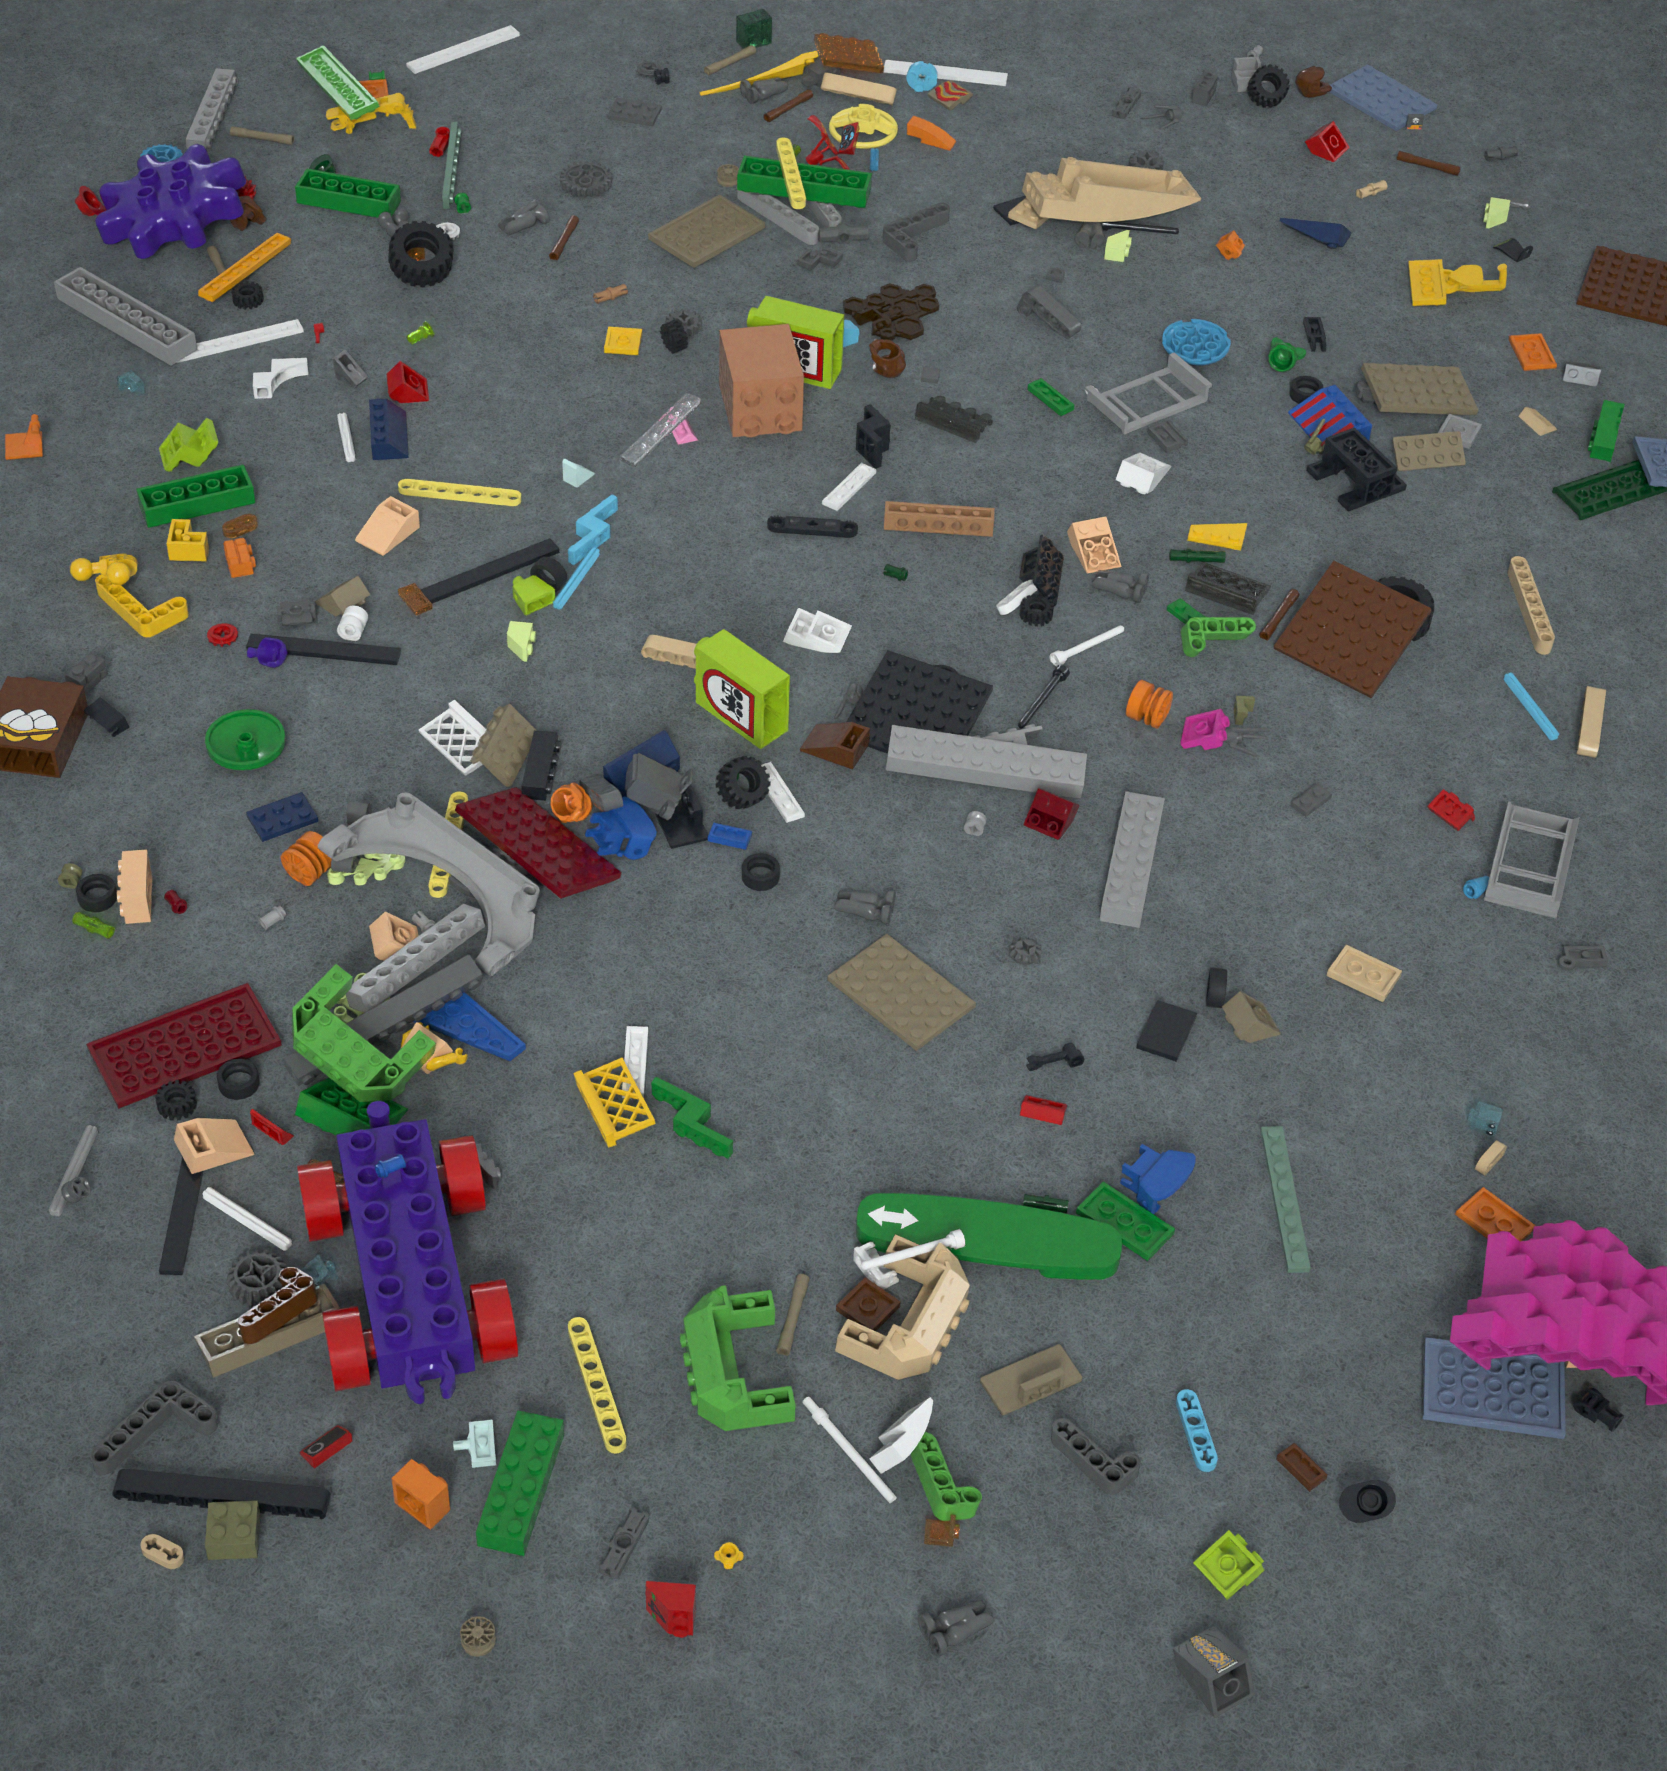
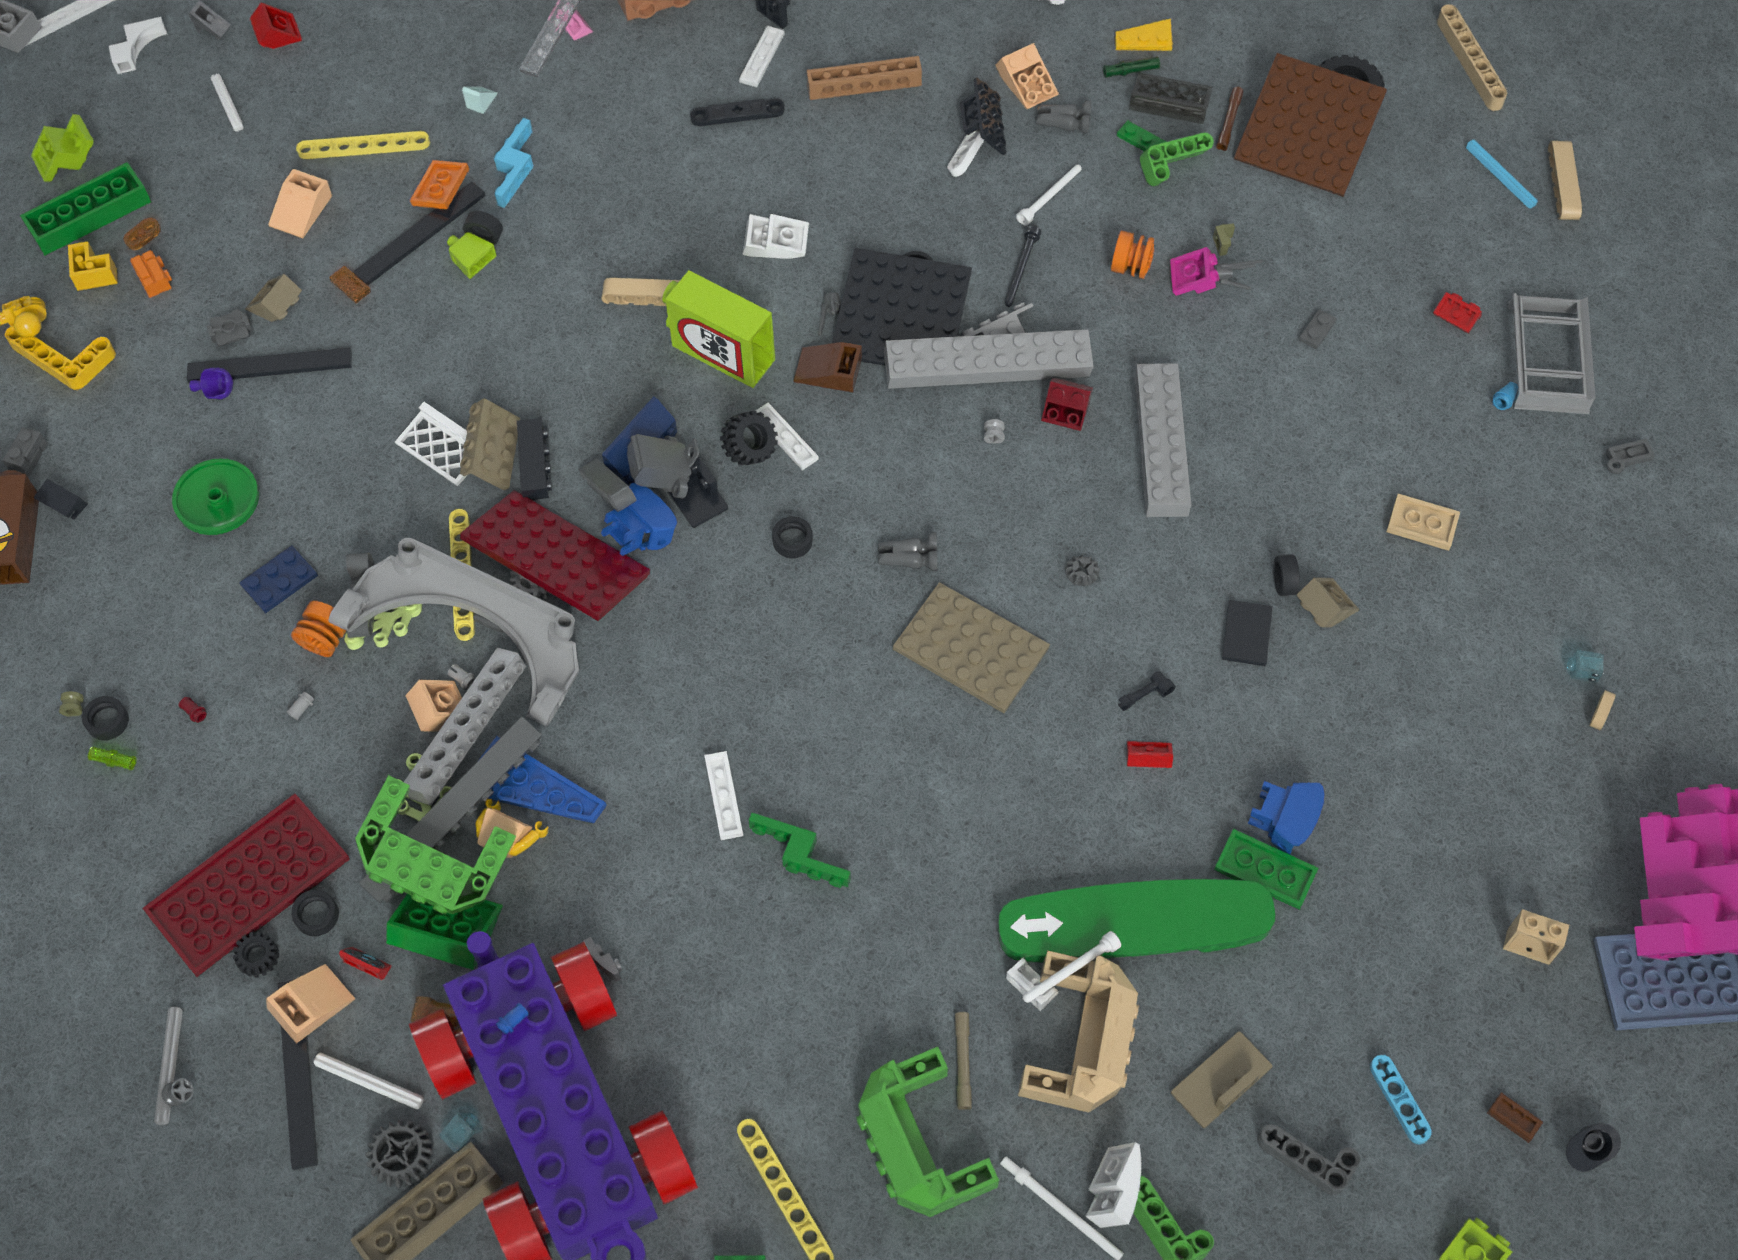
camera: 10 degrees left, 15 degrees up
(135, 886) = (145, 705): light nougat brick -> none
(215, 632) = (150, 368): red gear -> none
(296, 1296) = (413, 1217): reddish brown beam -> none
(352, 623) = (292, 329): white wheel -> none
(388, 430) = (269, 86): dark blue slope -> none
(519, 534) = (439, 184): none -> orange plate
(520, 639) = (472, 310): yellowish green slope -> none
(571, 803) = (577, 500): orange helmet -> none
(576, 578) = (511, 223): medium azure axle -> none
(599, 1111) = (702, 864): yellow fence -> none
(729, 836) = (749, 500): blue plate -> none
(868, 1305) = (1036, 1032): reddish brown plate -> none
(895, 572) = (836, 149): dark green pin -> none
(1036, 617) = (989, 156): black tyre -> none
(1061, 1205) = (1181, 866): dark green pin -> none
(1285, 1199) = (1415, 805): sand green plate -> none
(1376, 1310) = (1525, 934): none -> tan window
(1490, 1215) = (1624, 780): orange tile -> none

